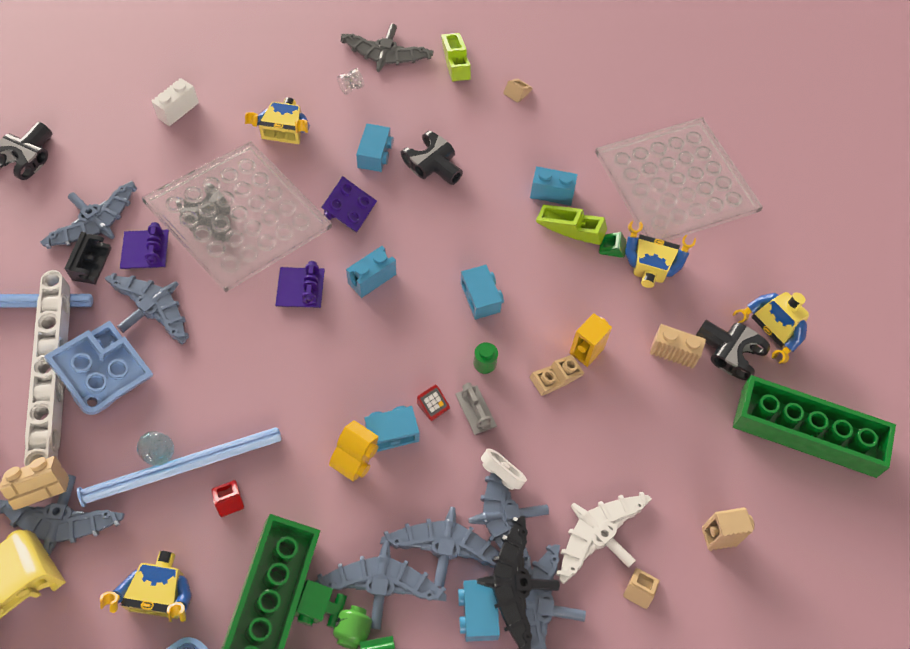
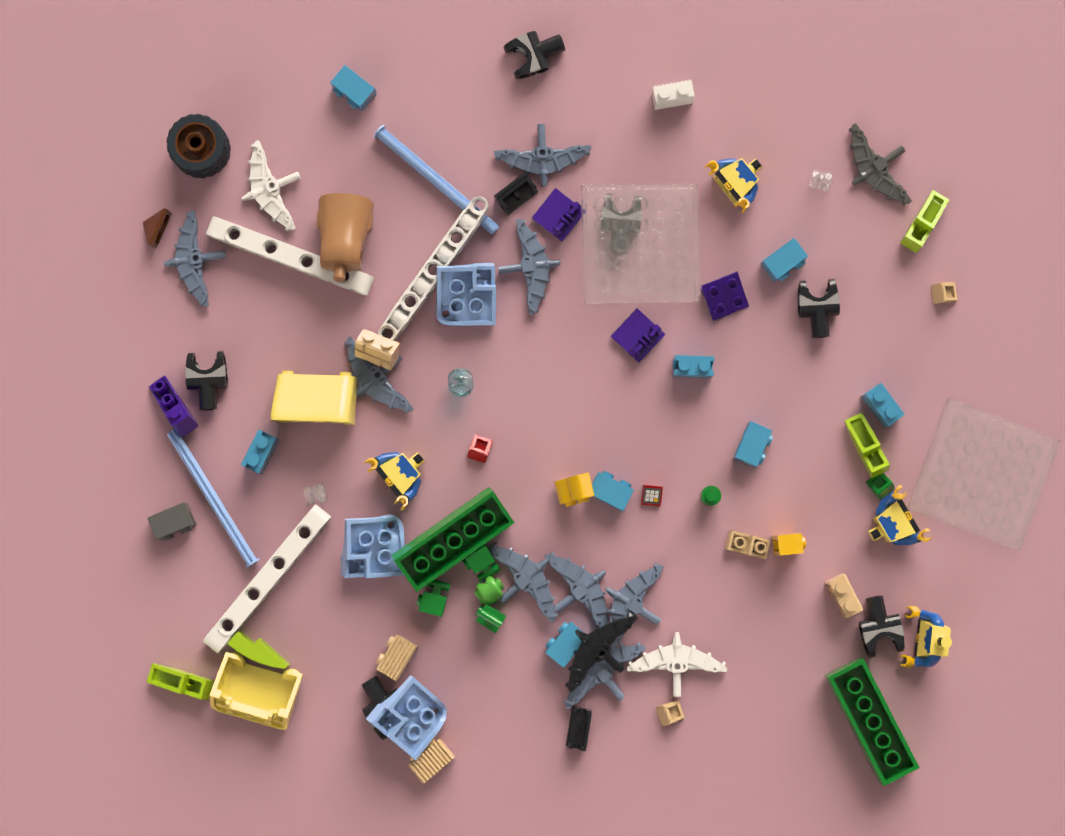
camera: 45 degrees right, 25 degrees up
(177, 466) = (468, 404): light blue axle -> none
(475, 409) = (674, 522): light grey hinge -> none
(509, 474) = (652, 577): white plate -> none
(727, 528) = (749, 730): tan brick -> none

